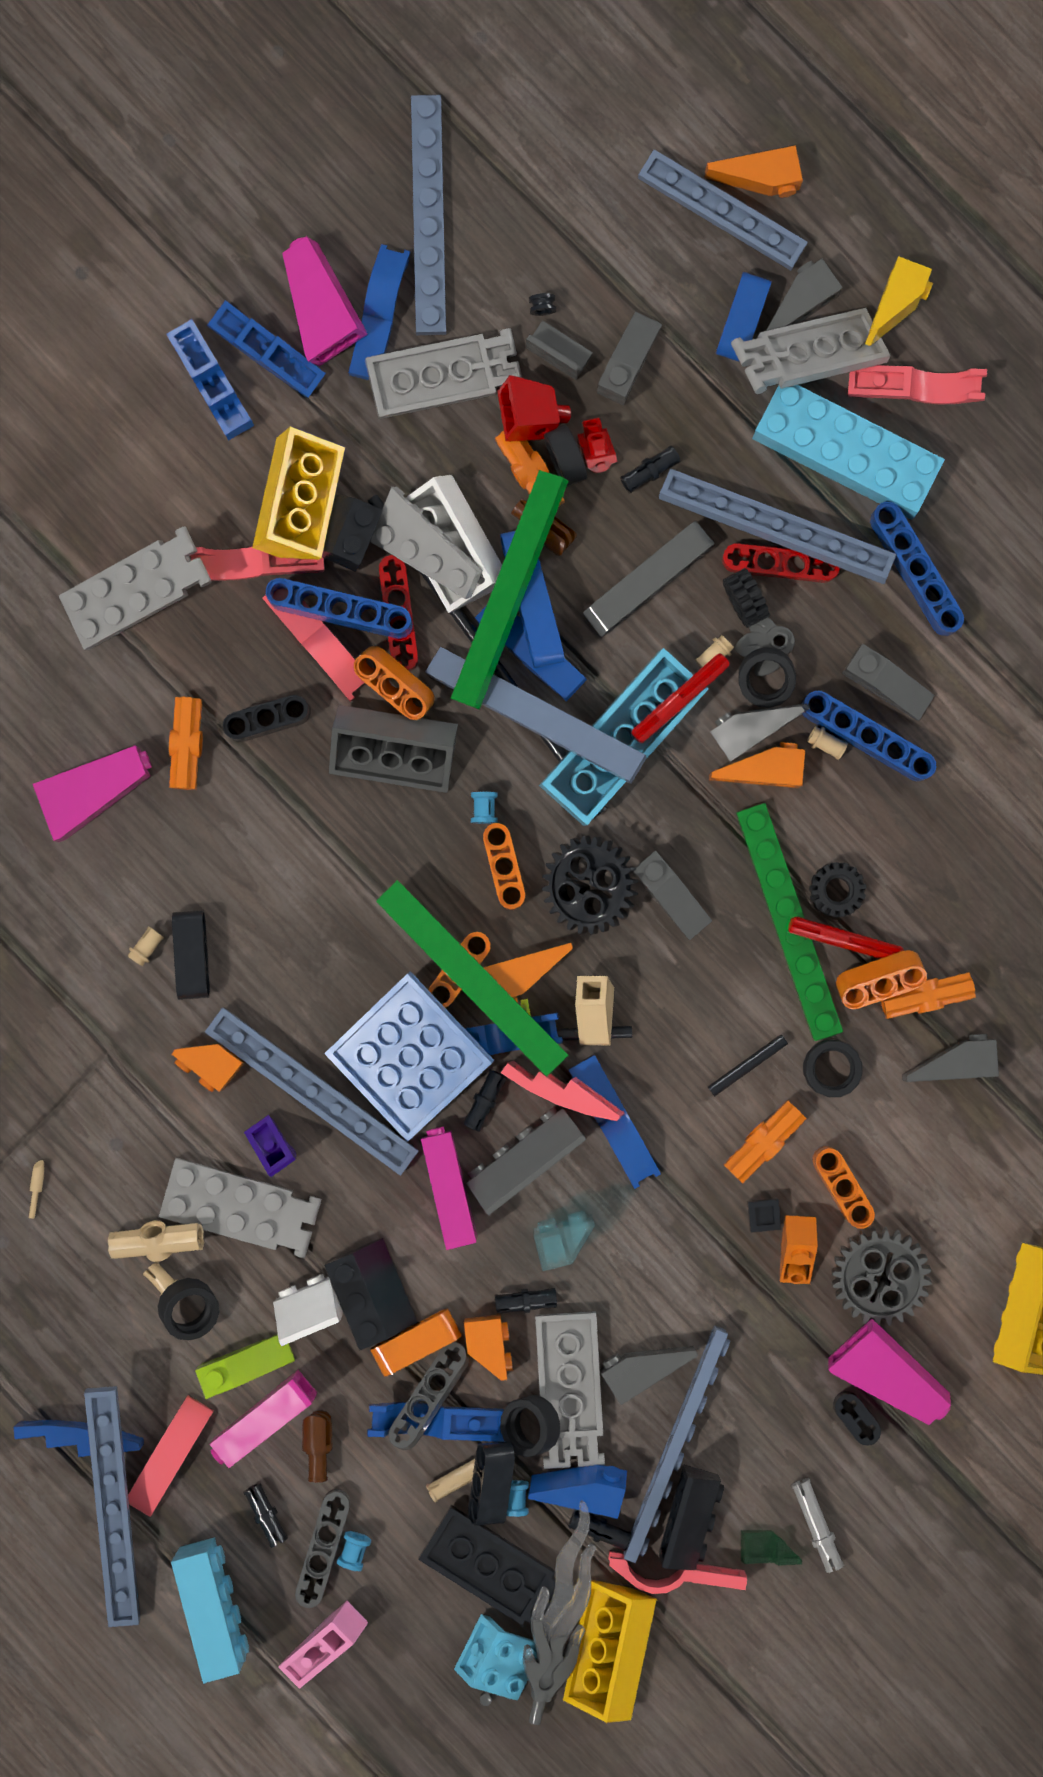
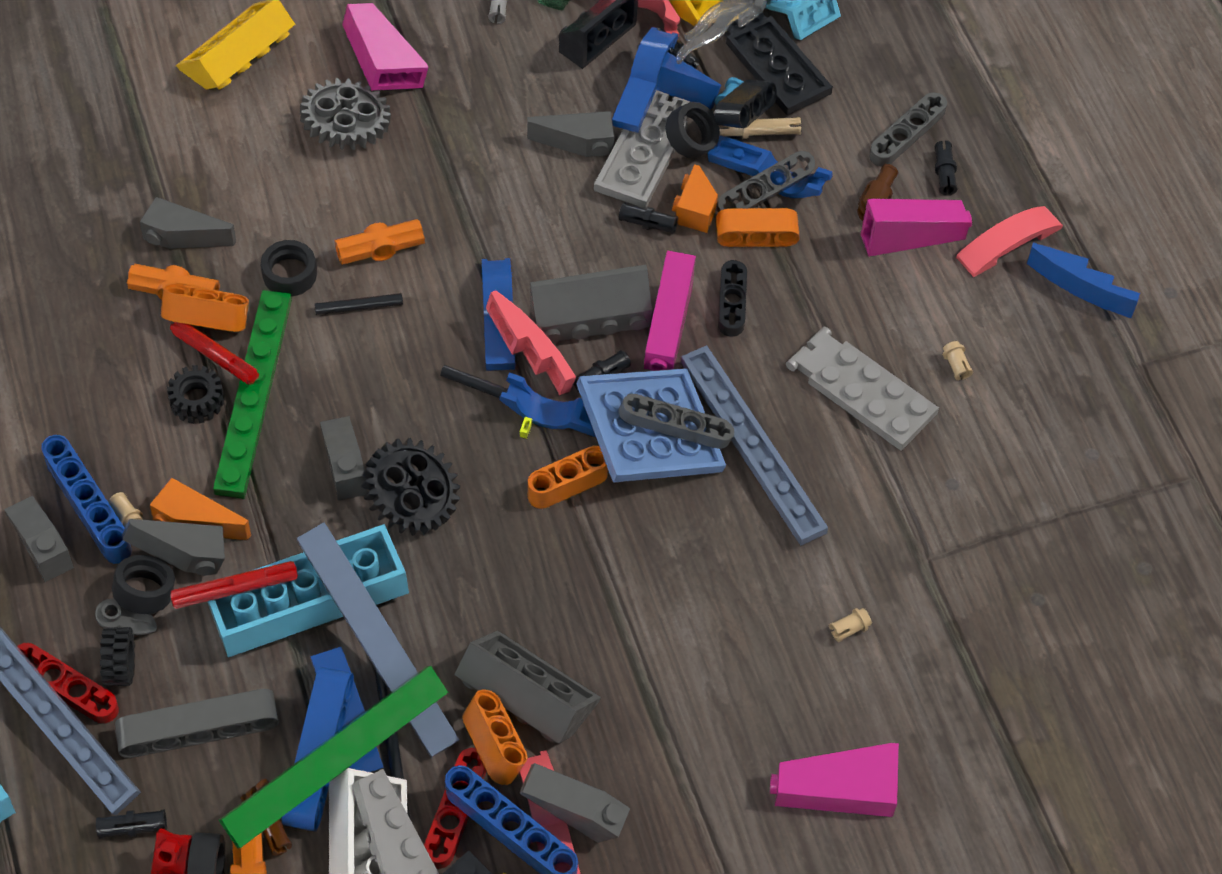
camera: 155 degrees left, 30 degrees down
(36, 1185) = (1041, 480): tan piece -> none
(112, 1506) = (1072, 215): sand blue plate -> none
(156, 1241) = (968, 393): tan piece -> none
(185, 743) = (726, 782): orange piece -> none
(190, 955) = (810, 597): black beam -> none
(200, 1325) = (943, 324): black tyre -> none
(210, 1610) = (1021, 117): medium azure brick -> none
(211, 1062) = (836, 502): orange slope -> none
(243, 1366) = (916, 271): lime slope -> none
(251, 718) = (650, 759): black beam -> none
(270, 1146) = (811, 410): dark purple slope -> none
(295, 651) = (576, 803): none -> dark grey slope
(306, 1309) = (838, 270): white slope -> none
(324, 1644) = (933, 66): bright pink slope -> none
(353, 1551) = (883, 114): dark azure bush -> none
(370, 1293) = (778, 275): black slope -> none
(386, 1070) = (676, 417): none -> dark grey beam
(418, 1266) = (727, 307): none -> black beam
(472, 978) = (561, 456): green tile -> none
(484, 807) = (470, 597): dark azure bush -> none
(496, 853) = (479, 528): orange beam -> none
(521, 973) = (511, 450): orange slope -> none
(562, 1241) = (590, 236): clear light blue slope -> none
(594, 1010) = (465, 389): tan slope -> none
(607, 1465) = (643, 79): none -> blue piece
(681, 1432) = (574, 81): sand blue plate -> none
(720, 645) = (177, 631): tan pin -> none
(764, 1215) = (413, 193): black plate -> none
(798, 1249) = (400, 157): orange slope -> none
(854, 1197) = (335, 184): orange beam -> none
(862, 1413) = (430, 38): black beam -> none

